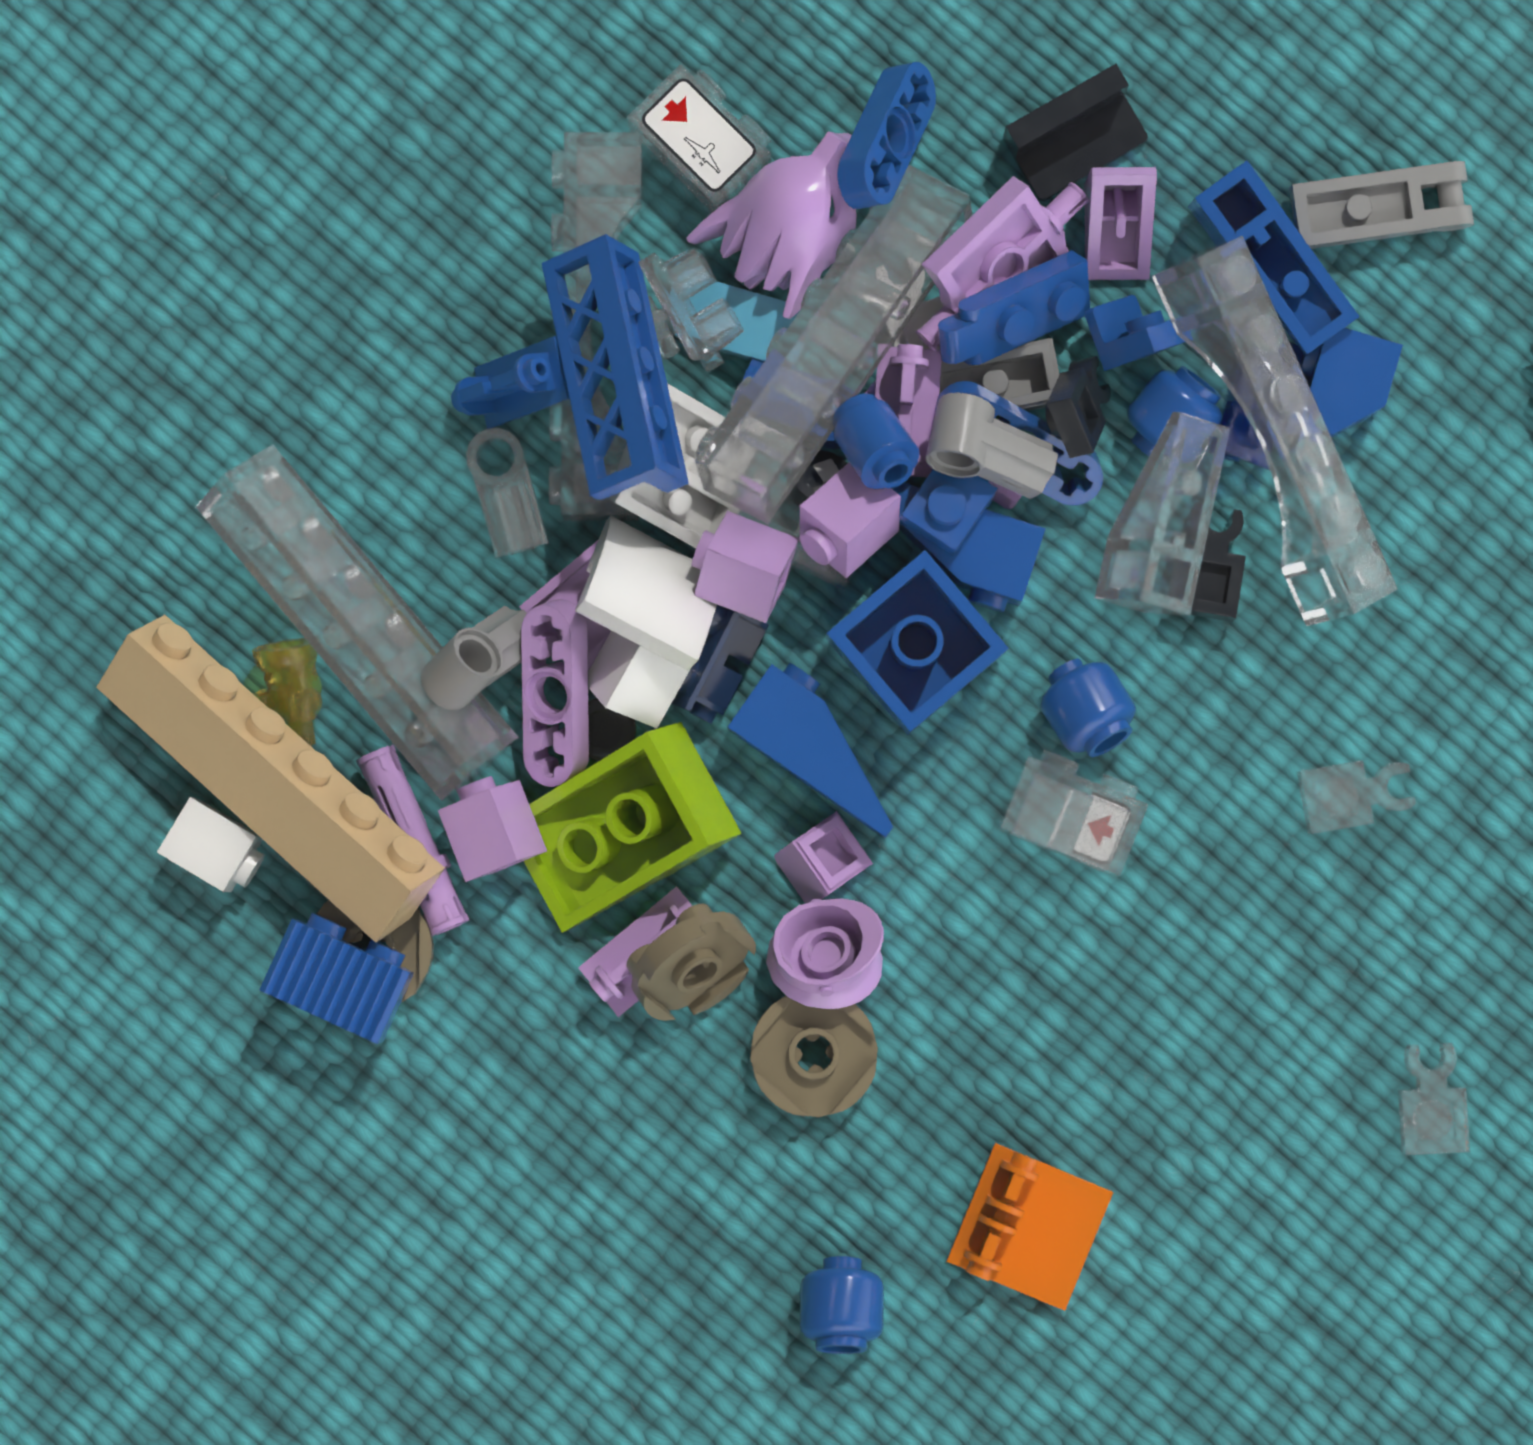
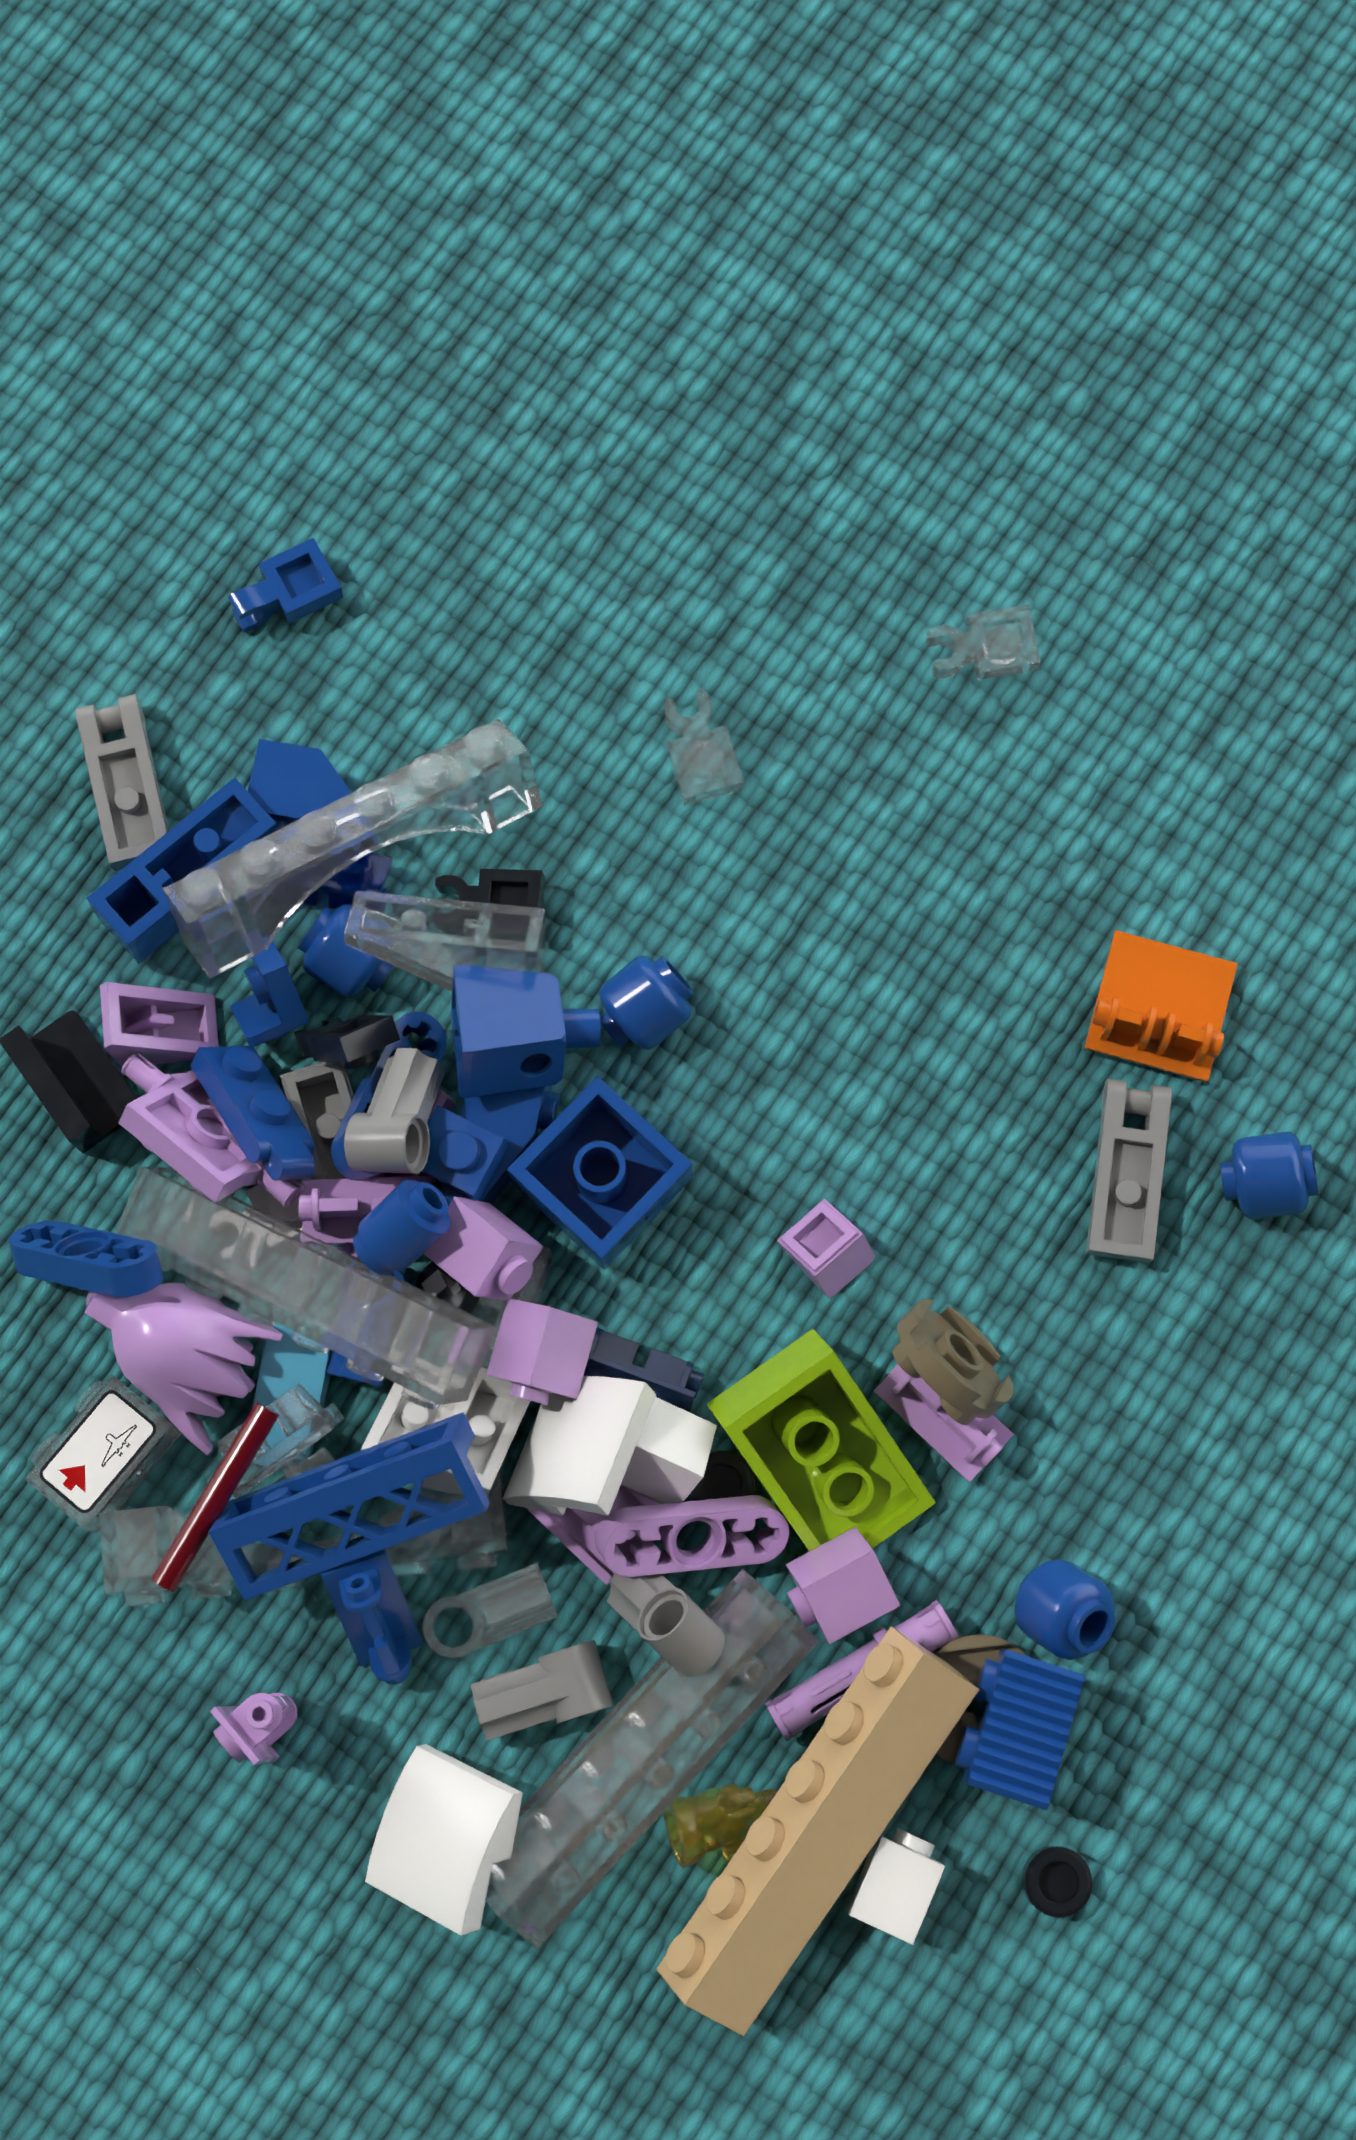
camera: 95 degrees left, 10 degrees down
(199, 999) = (1057, 1881): none -> black tile
(304, 429) = (443, 1837): none -> white slope
(422, 258) = (255, 1726): none -> lavender hinge
(430, 551) = (556, 1688): none -> light grey piece
(444, 1039) = (1065, 1609): none -> blue head
(640, 243) = (215, 1497): none -> dark red bar
(802, 737) = (709, 1275): blue slope -> none
(814, 1090) = (1059, 1226): dark tan plate -> none
(827, 953) = (922, 1228): lavender piece -> none
(862, 1167) = (1128, 1173): none -> light grey plate
(1066, 570) = (513, 1029): none -> blue torso
(1074, 814) = (753, 1004): clear brick -> none

